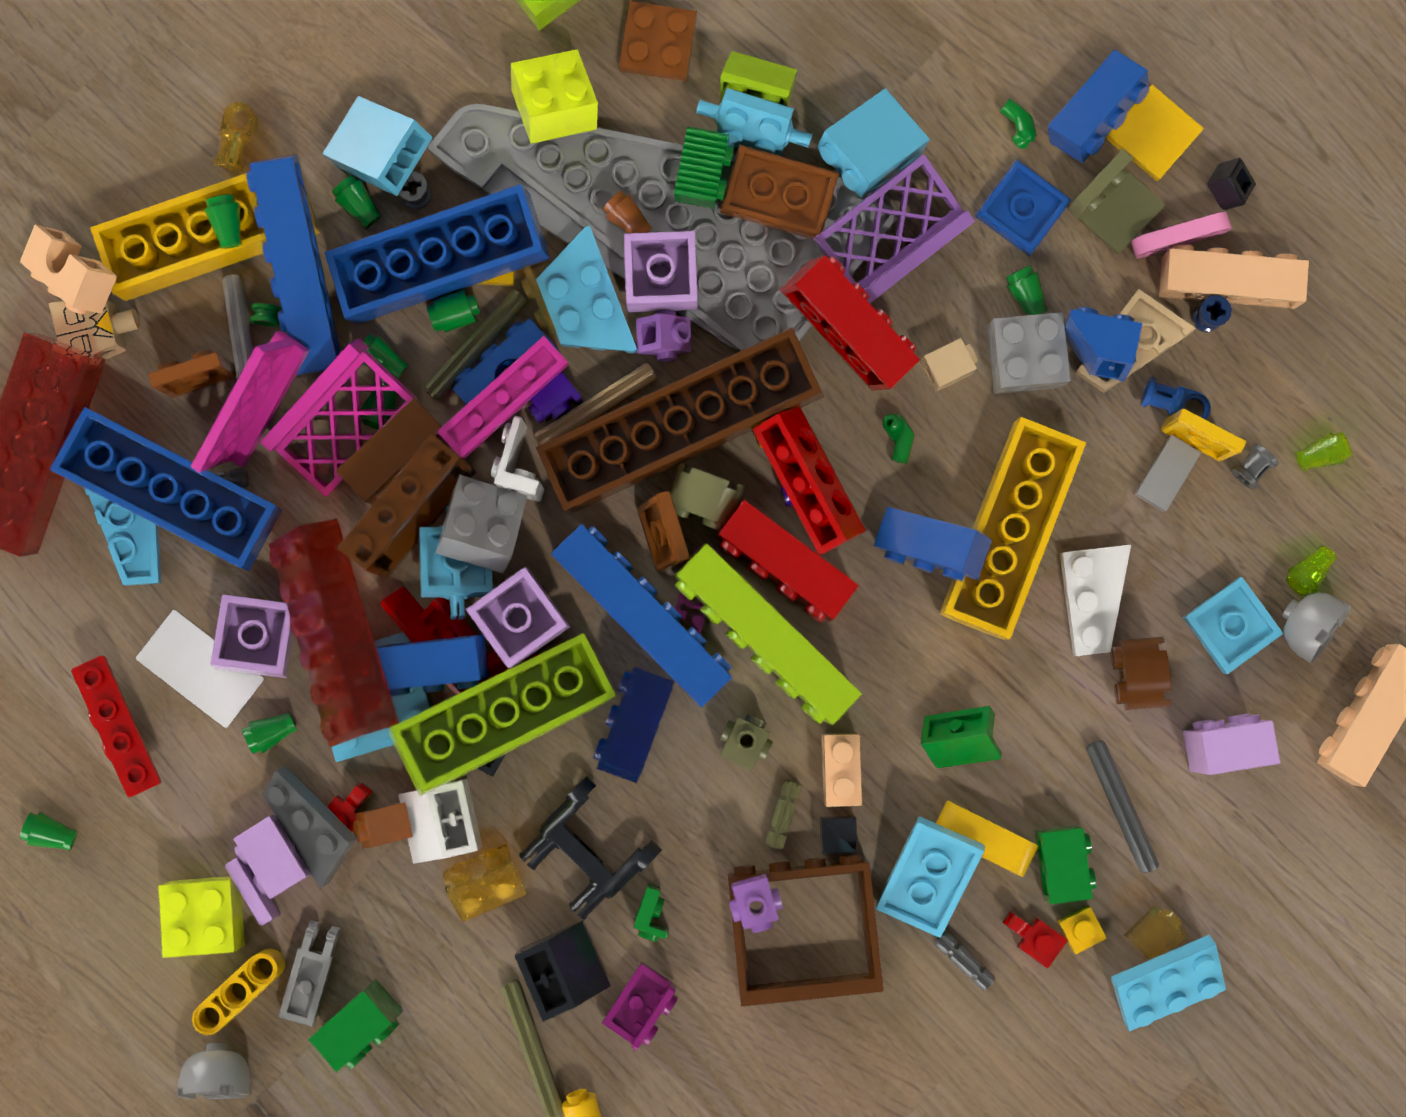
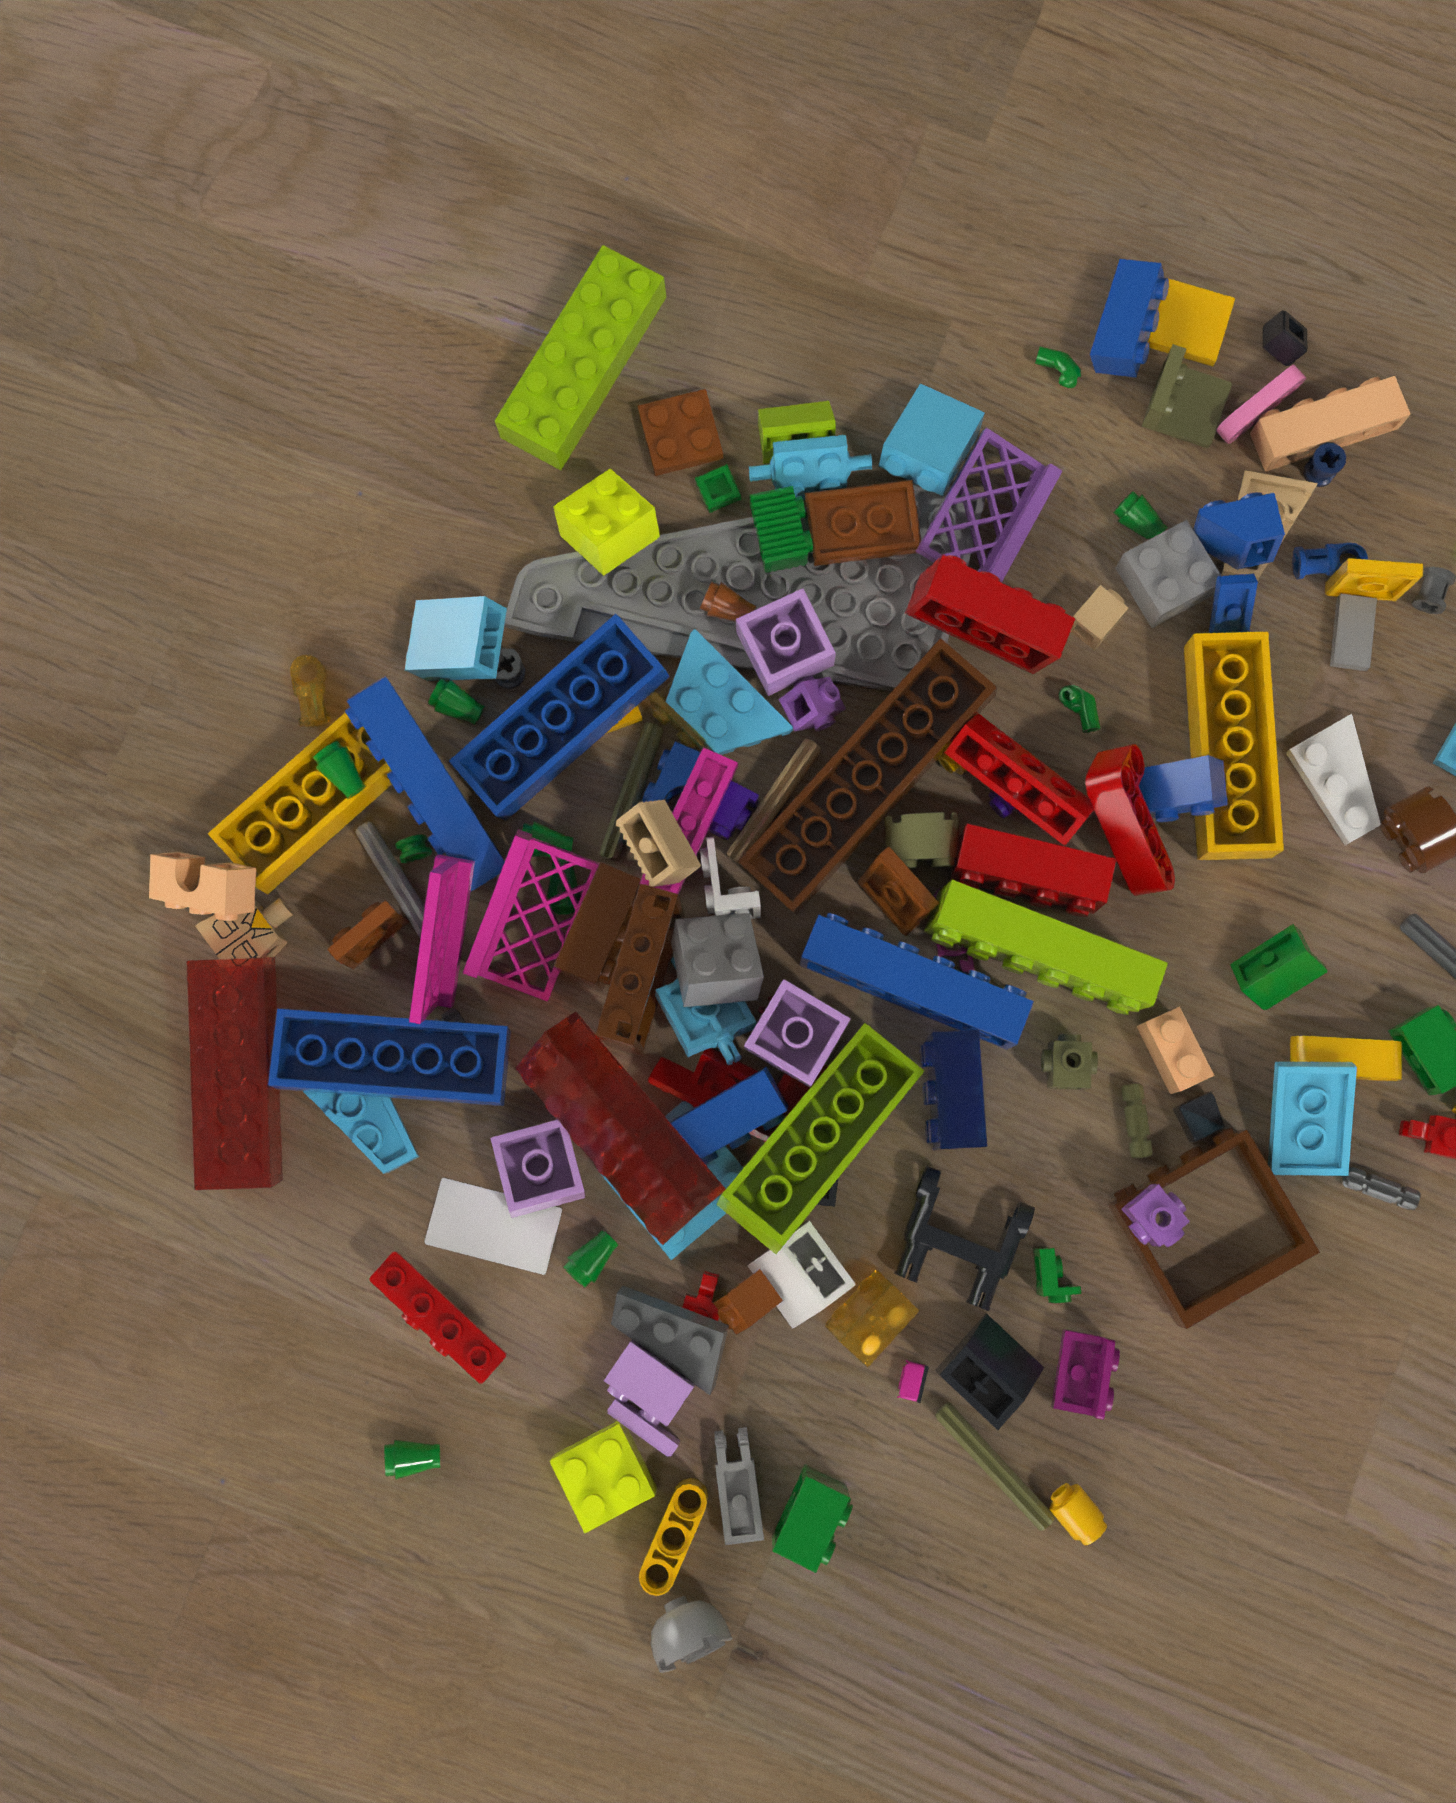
camera: 15 degrees left, 5 degrees down
(453, 311) = (596, 767): green brick -> none
(463, 404) = (658, 843): none -> tan brick
(495, 950) = (912, 1381): none -> dark pink piece
(668, 106) = (718, 488): none -> green tile
(886, 554) = (1127, 821): none -> red beam
(1023, 208) = (1098, 442): blue tile -> none
(1069, 405) = (1233, 603): none -> blue plate

